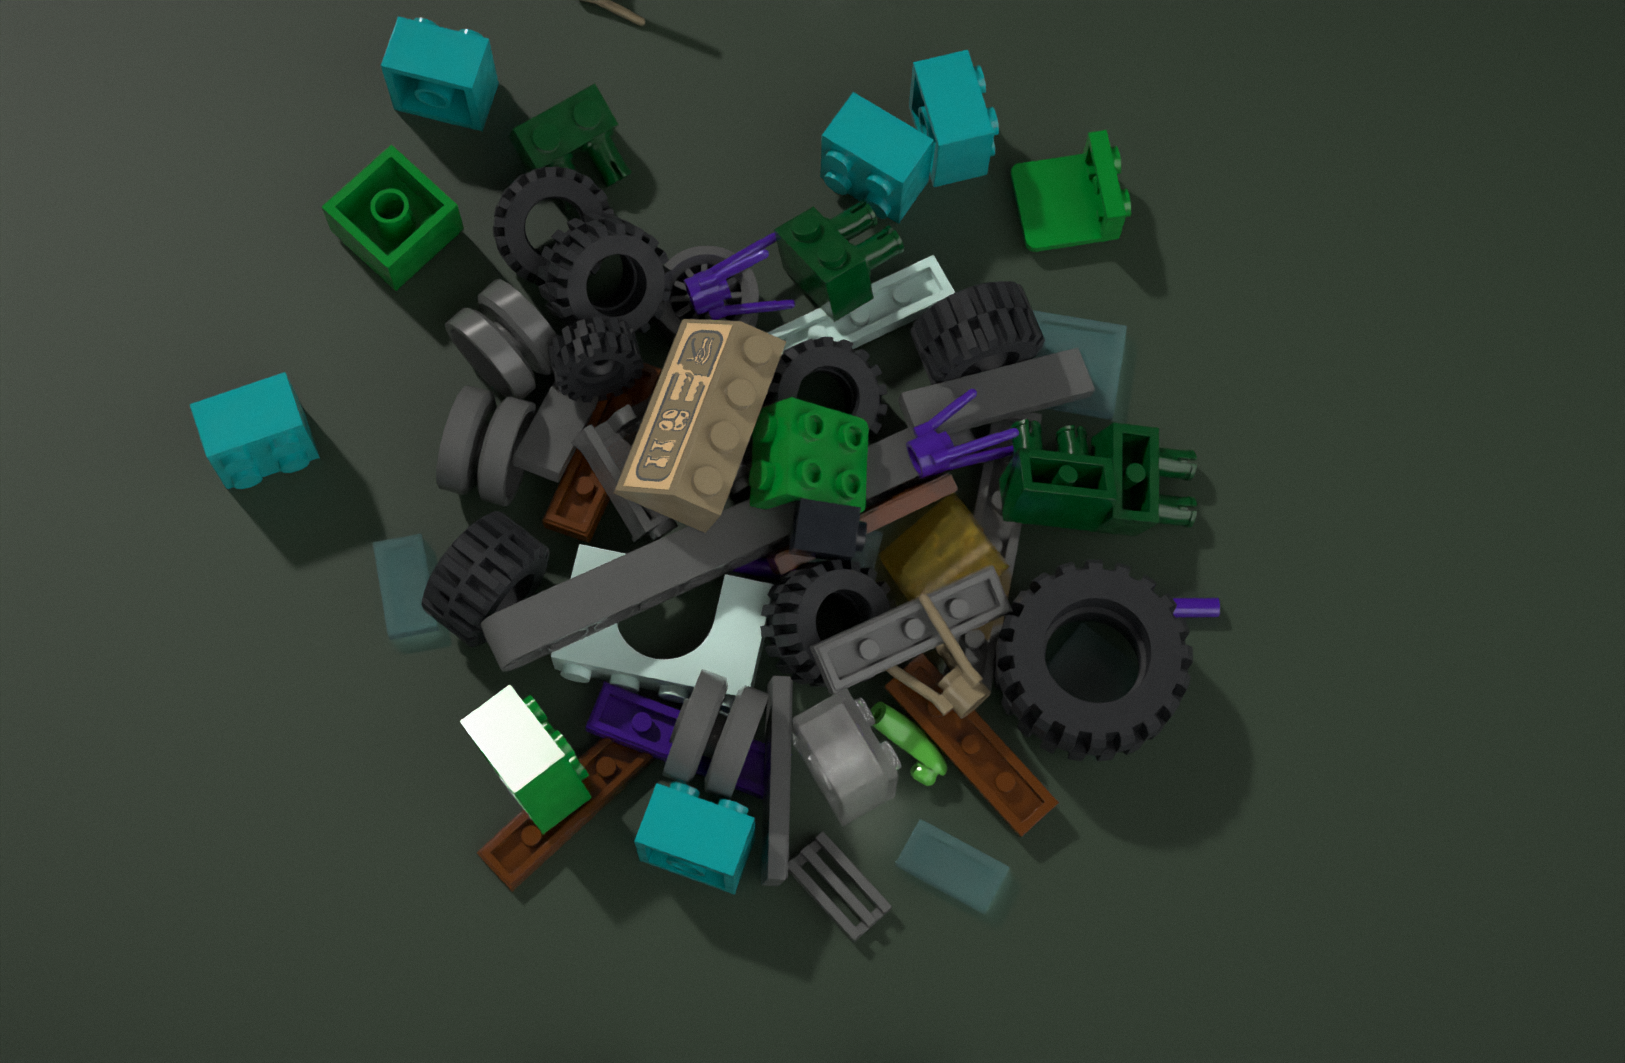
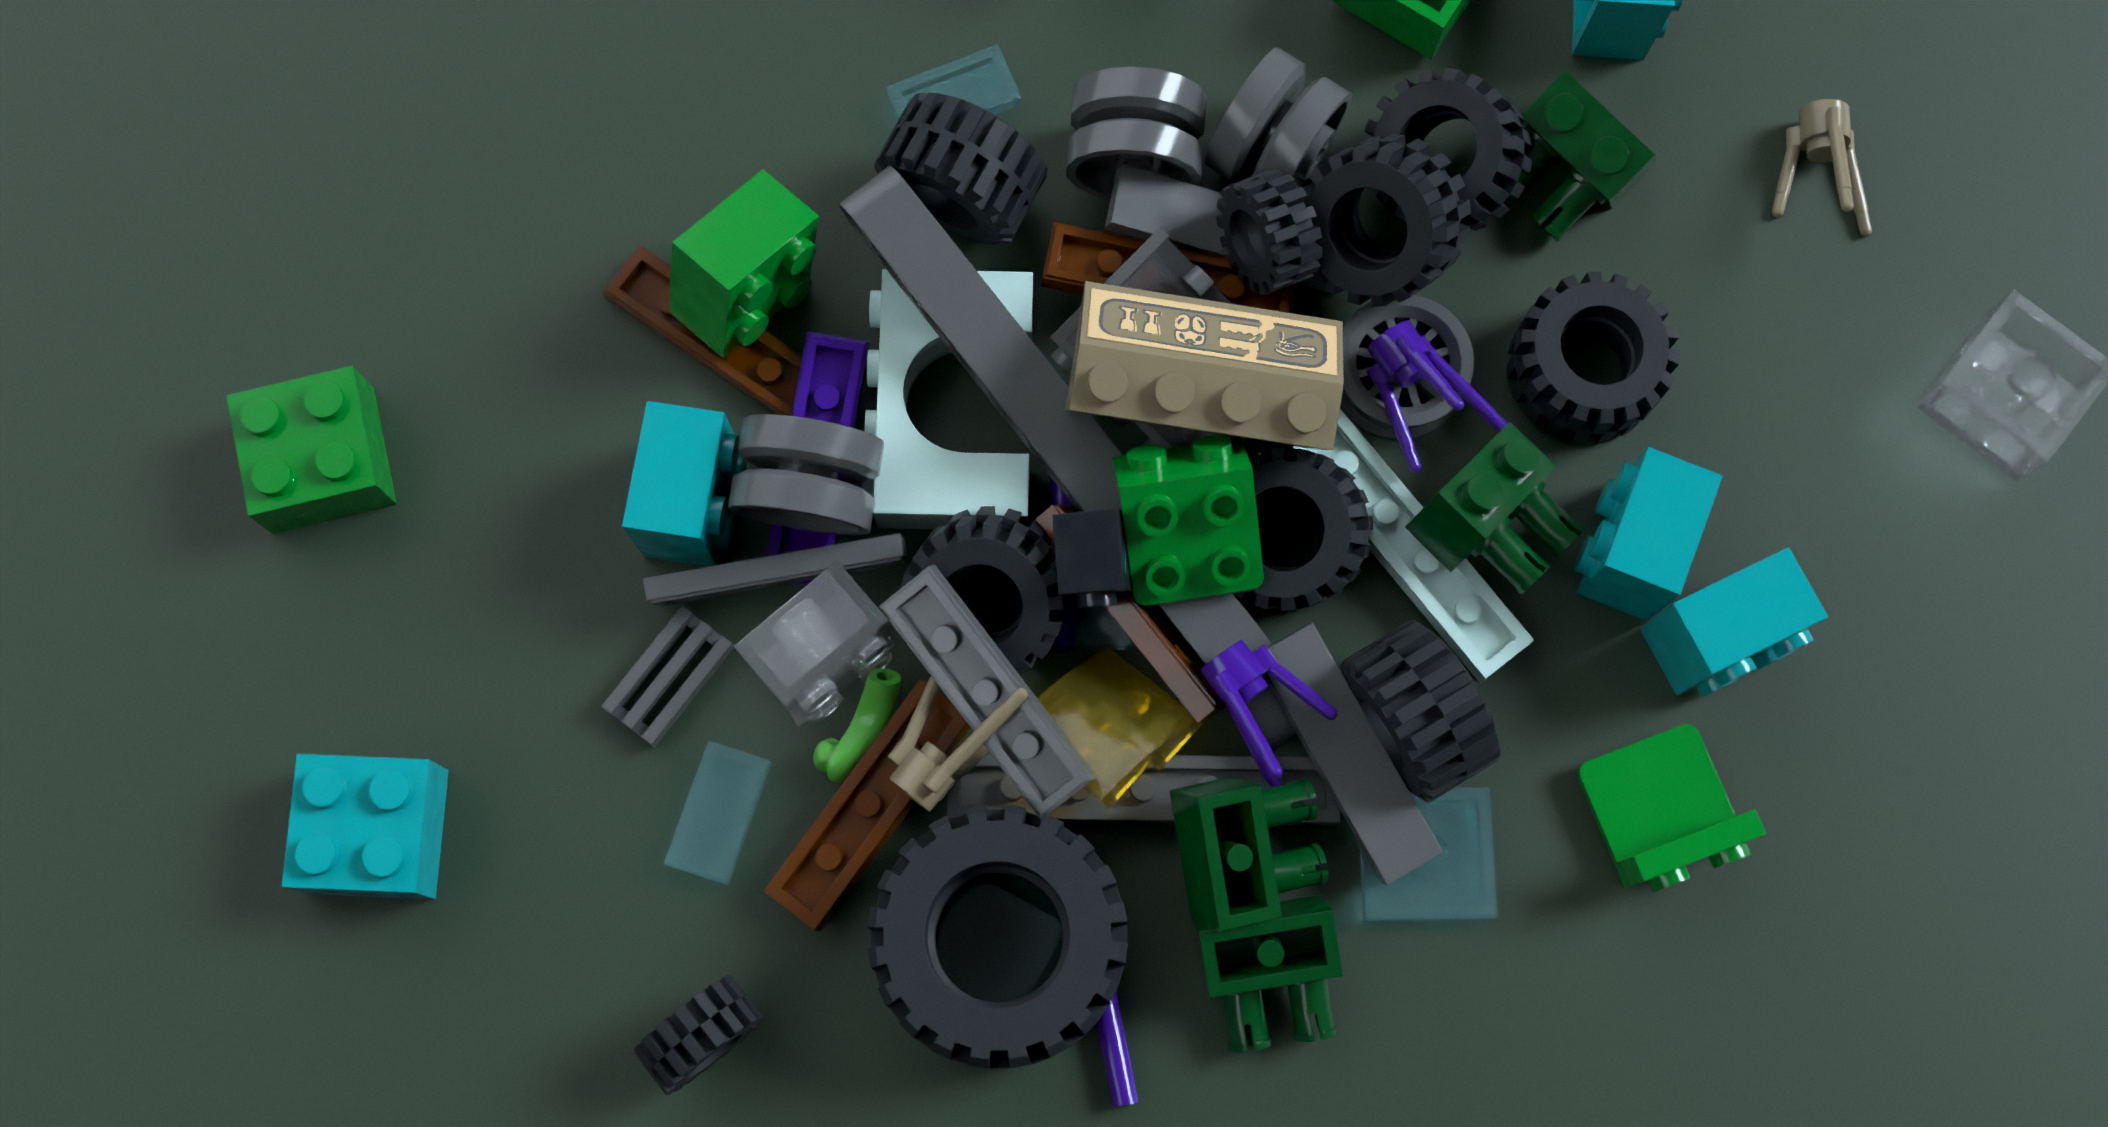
camera: 80 degrees right, 5 degrees up
(726, 133) = (1621, 320): none -> black tyre
(1125, 897) = (698, 1034): none -> black tyre

